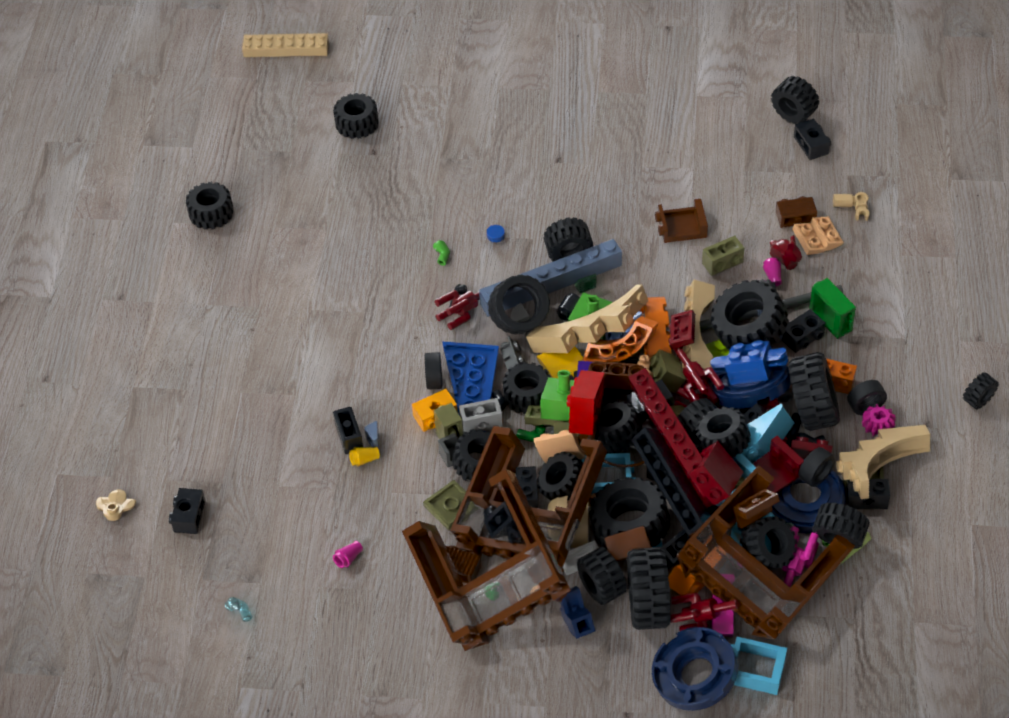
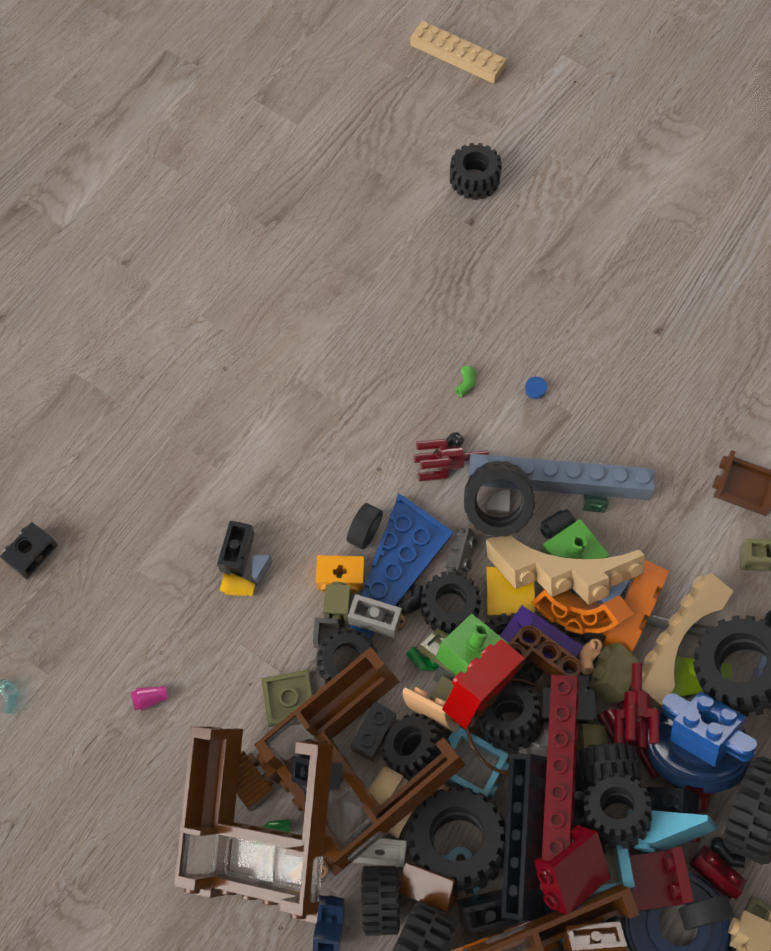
camera: 30 degrees right, 15 degrees up
(209, 205) = (263, 190): black tyre -> none
(567, 238) = (602, 443): black tyre -> none
(682, 330) = (657, 636): dark red bracket -> none
(791, 435) = (721, 821): black axle -> none

